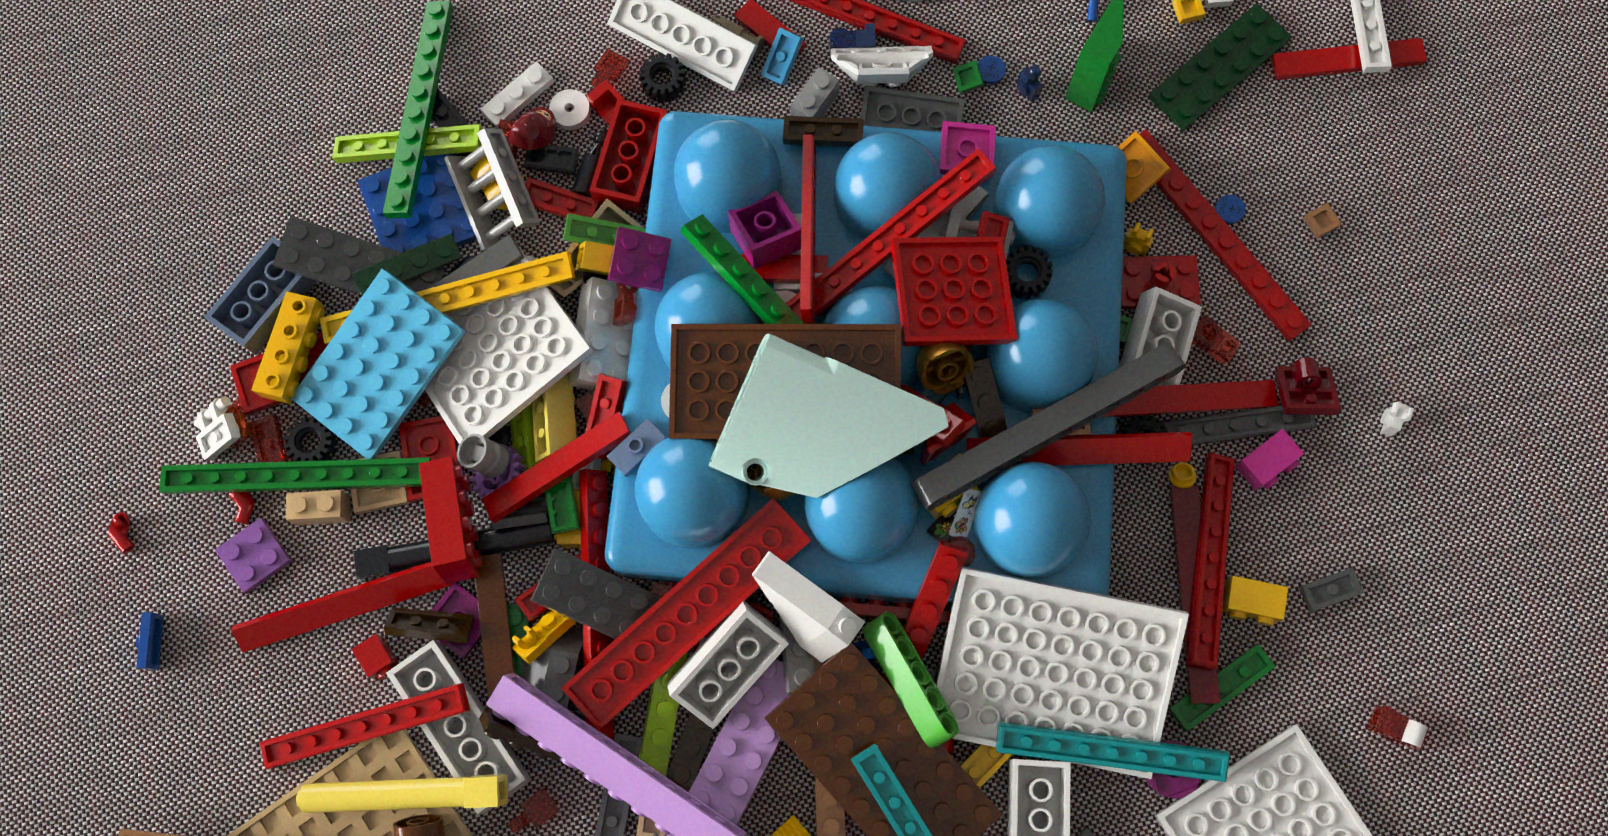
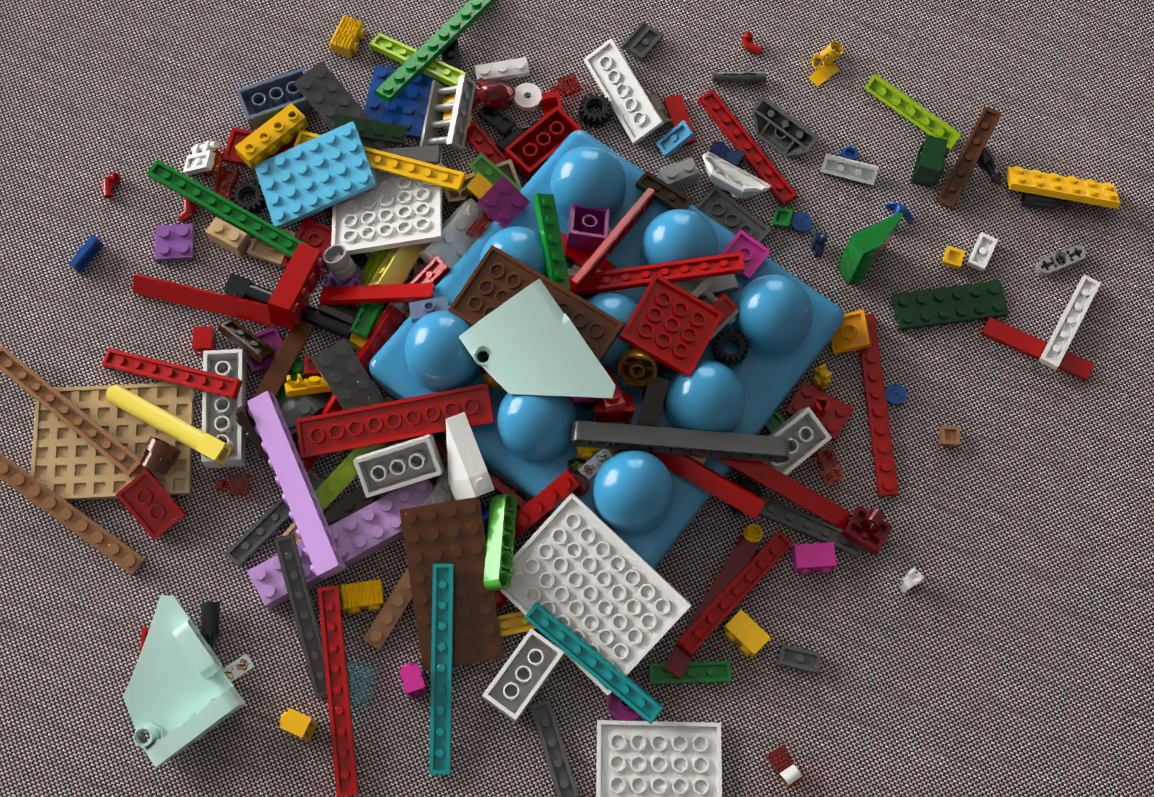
camera: 25 degrees right, 5 degrees down
(299, 165) = (347, 36): none -> yellow brick

